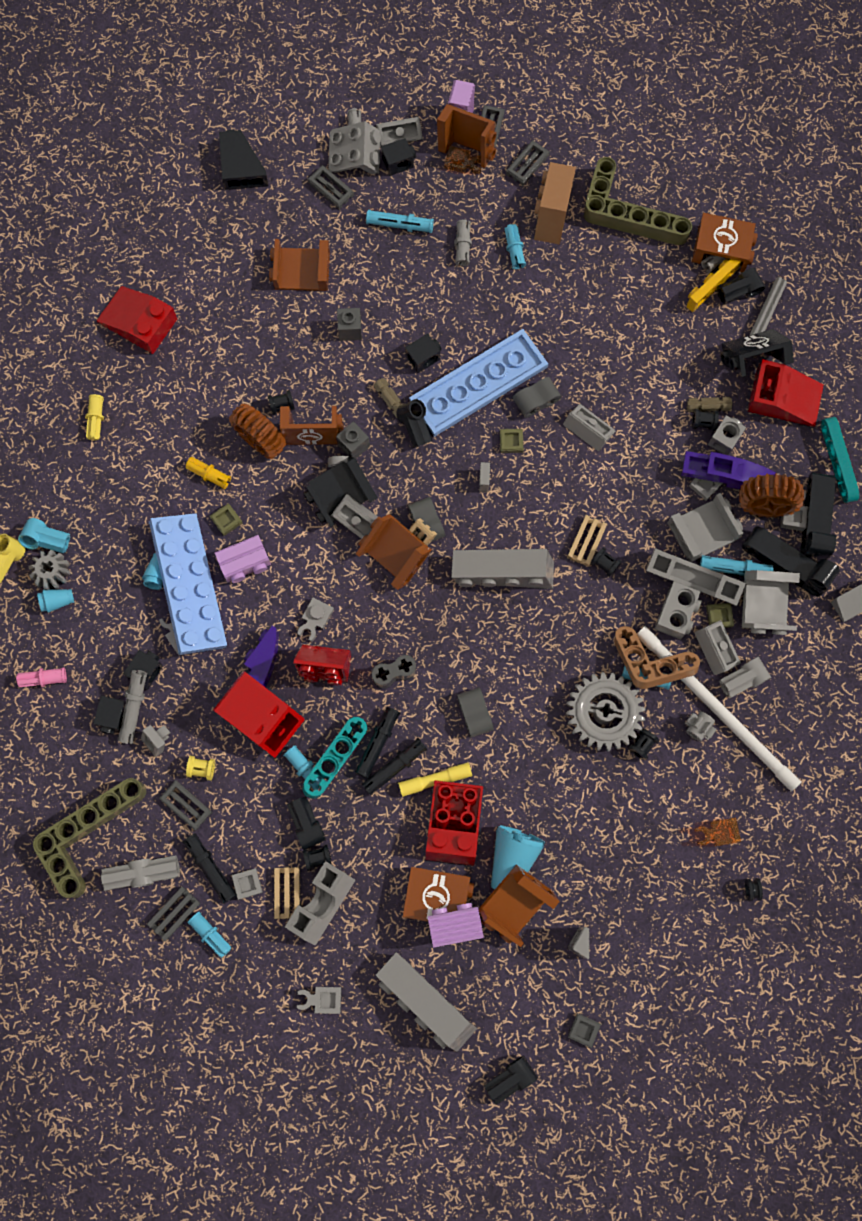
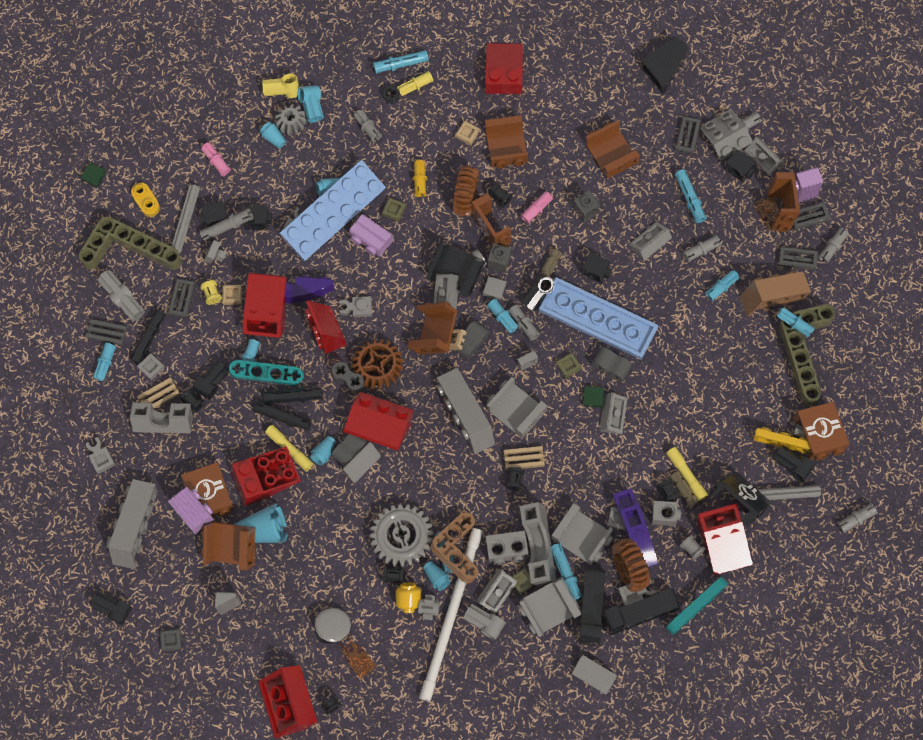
camera: 65 degrees right, 5 degrees down
(38, 783) = (145, 198): none -> yellow plate
(58, 418) = (402, 61): none -> medium azure pin
(85, 444) = (393, 90): none -> black bush
(91, 749) = (185, 217): none -> light grey axle
(110, 493) = (367, 125): none -> light grey axle
(186, 396) = (467, 133): none -> tan tile
(216, 746) = (232, 294): none -> tan tile
(223, 363) = (506, 141): none -> dark orange panel
(317, 374) = (536, 207): none -> bright pink axle
(381, 466) = (494, 288): none -> light grey tile
(385, 630) = (383, 360): none -> dark orange gear
(418, 474) = (502, 316): none -> medium azure axle
(422, 286) = (651, 240): none -> light grey slope
(455, 456) = (524, 322): none -> light grey pin
(460, 743) = (322, 452): none -> medium azure cone
(465, 665) = (379, 421): none -> red slope
(497, 710) = (361, 462): none -> light grey slope
(530, 518) = (515, 408): none -> light grey panel
(534, 123) = (833, 245): none -> light grey pin
(560, 435) = (593, 396): none -> dark green tile
(603, 196) = (795, 322): none -> medium azure axle
(665, 841) = (332, 625): none -> light grey piece
(668, 700) = (437, 577): none -> medium azure cone
(677, 742) = (408, 597): none -> yellow head
(680, 392) = (679, 462): none -> light yellow piece
(725, 935) = (287, 701): none -> red slope
(777, 430) = (692, 547): none -> light grey bush
(829, 263) = (857, 518): none -> light grey pin

